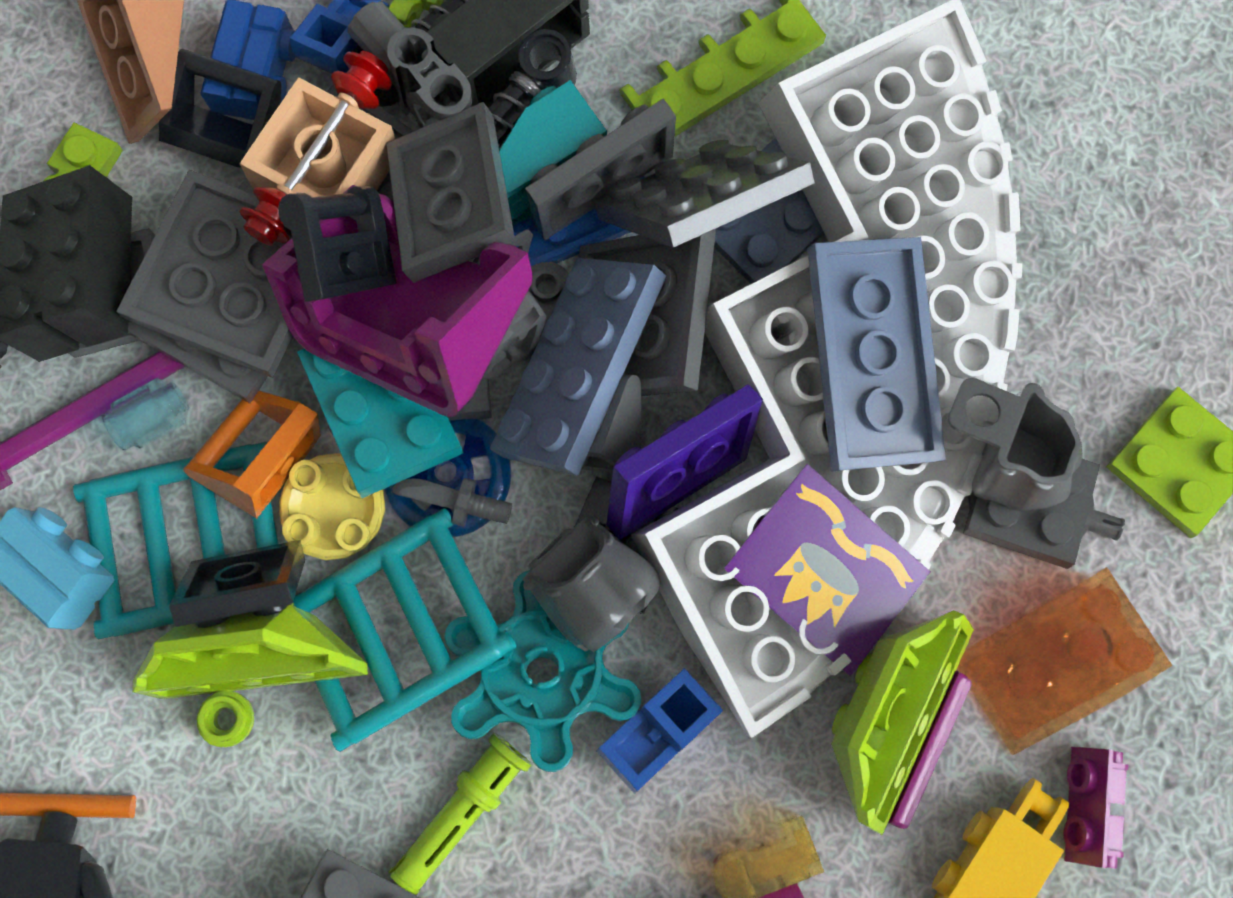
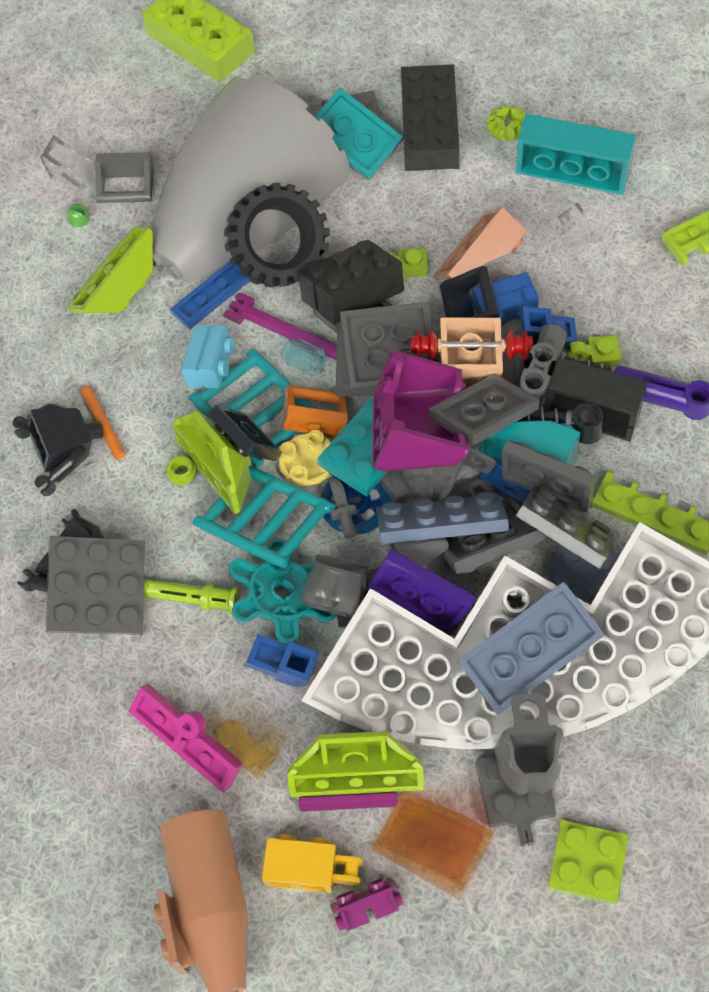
camera: 65 degrees right, 15 degrees down
(341, 262) = (416, 382): black plate -> none
(828, 566) = (410, 691): sticker -> none

